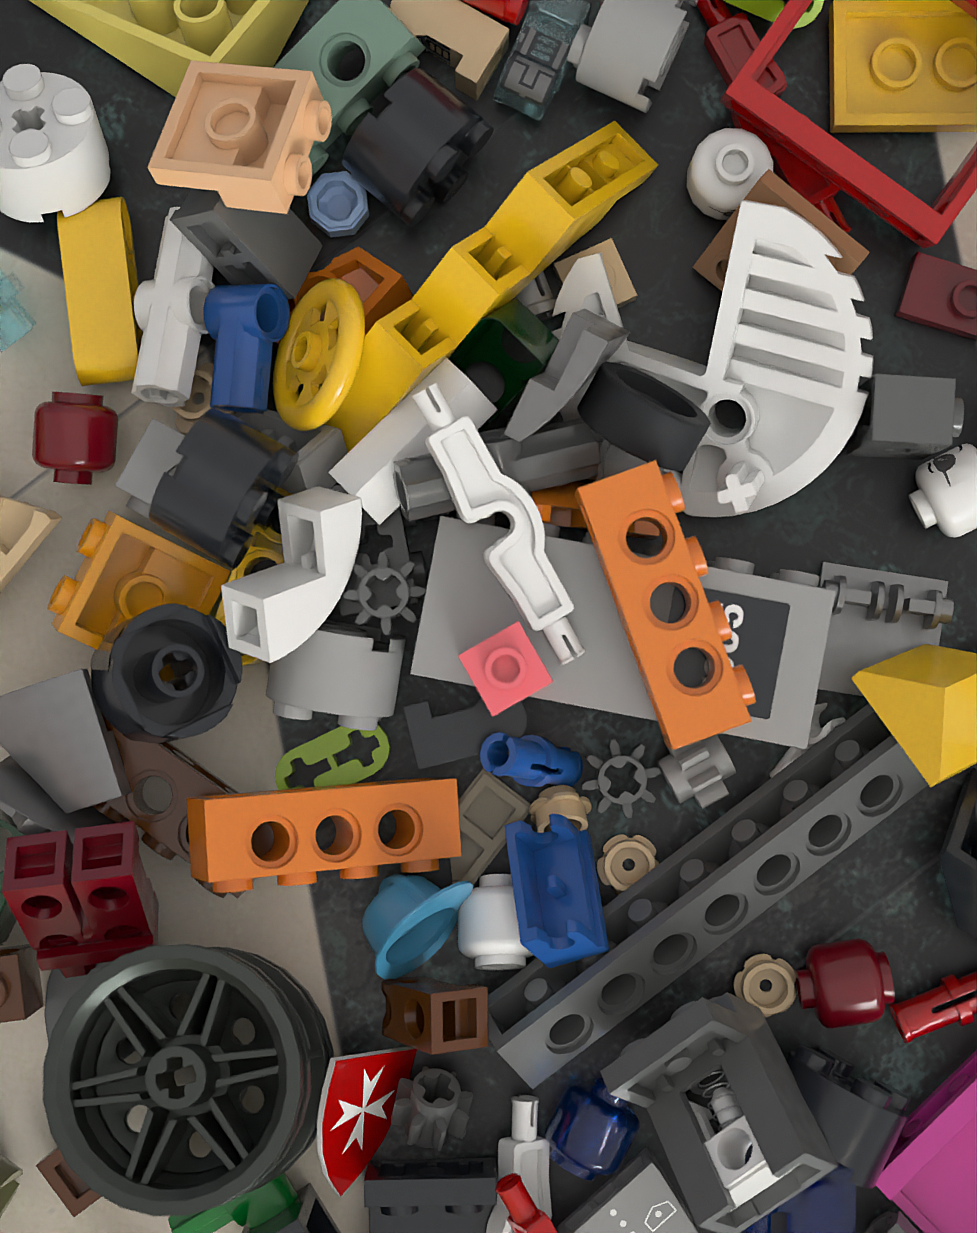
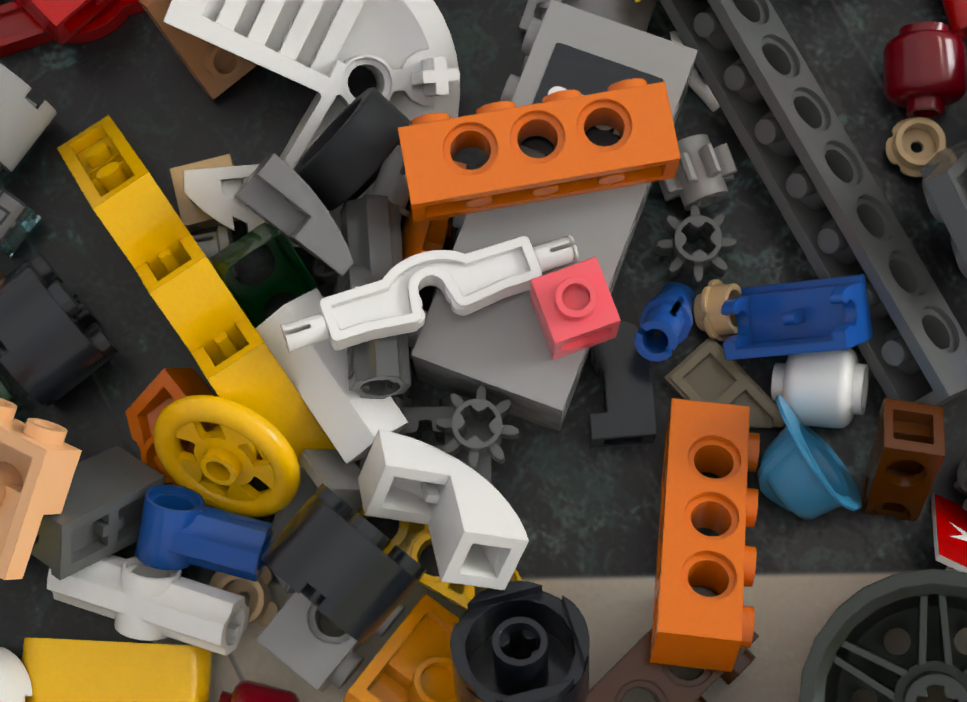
camera: 75 degrees left, 10 degrees down
(326, 747) = (619, 529): lime beam -> none
(337, 204) = (84, 419): light blue tile -> none
(339, 673) = (549, 493): light grey brick -> none
(622, 848) = (764, 261): tan plate -> none
(726, 170) = (130, 47): white head -> none

